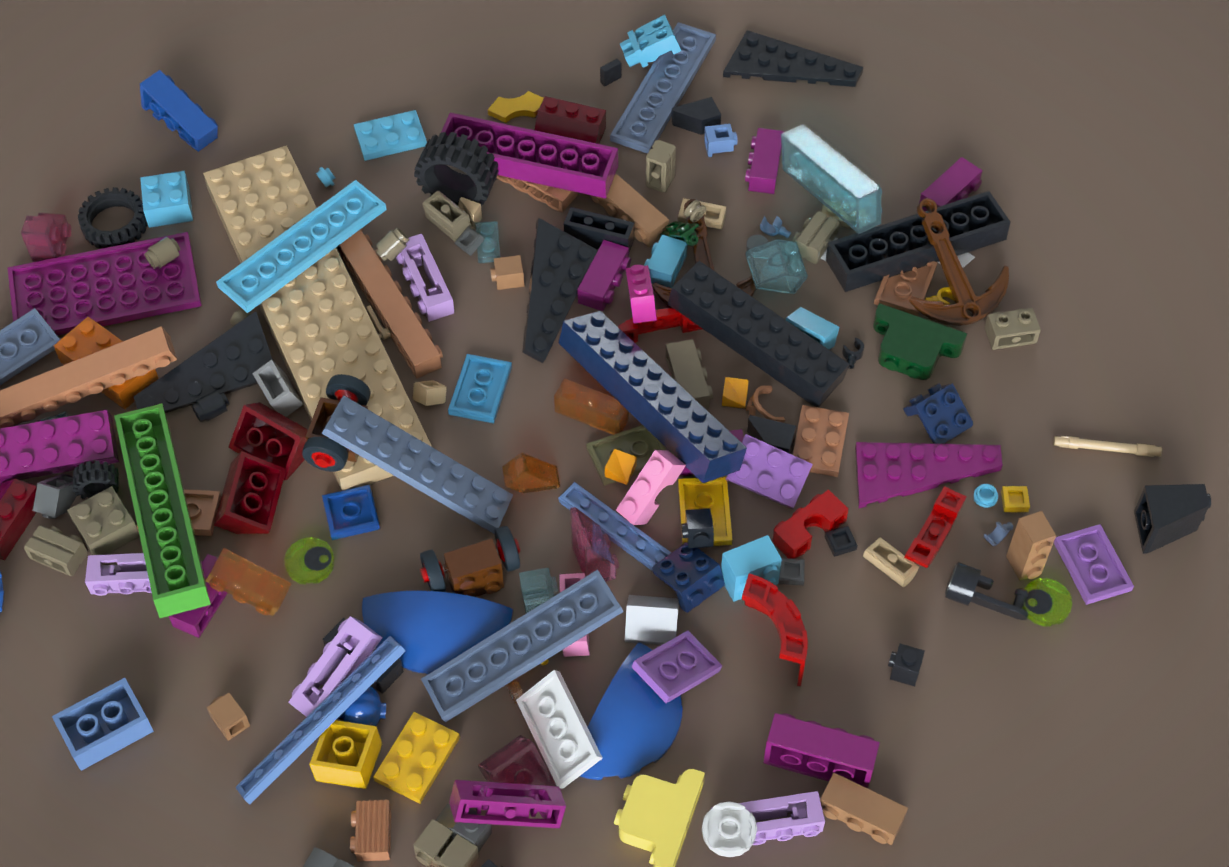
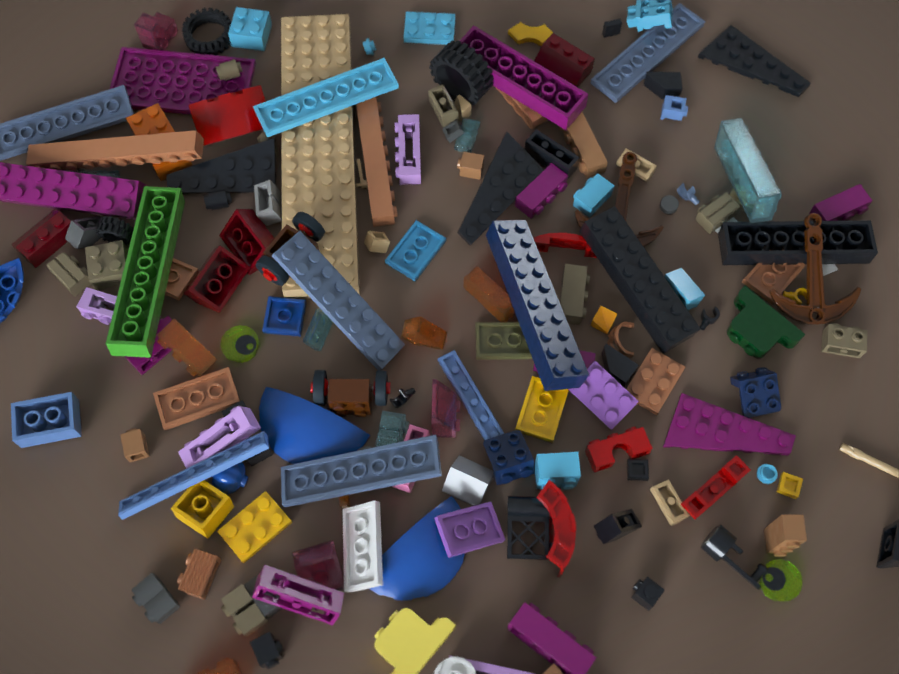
camera: 20 degrees right, 10 degrees up
(186, 304) = (227, 115): none -> red panel
(282, 638) = (196, 398): none -> nougat plate
(392, 244) = (392, 116): dark tan brick -> none
(401, 512) = (317, 330): none -> clear light blue plate
(535, 554) = (402, 398): none -> black piece
(620, 466) = (492, 351): light orange slope -> none
(641, 294) = (561, 217): dark pink brick -> none
(659, 472) = (514, 370): bright pink arch -> none
(660, 165) = (619, 116): dark tan brick -> none
(682, 231) = (614, 176): dark green hinge -> none
(695, 211) = (628, 163): dark tan bush -> none
(698, 528) = (529, 424): black brick -> none
(736, 624) = (527, 510): none -> black piece
(764, 161) = (701, 137): magenta brick -> none
(777, 266) = (676, 228): clear light blue slope -> none
(792, 572) = (589, 481): dark grey tile -> none
(842, 607) = (617, 526): none -> black slope
(999, 533) = (765, 508): sand blue piece -> none
(1093, 564) = (831, 563): medium lavender plate -> none

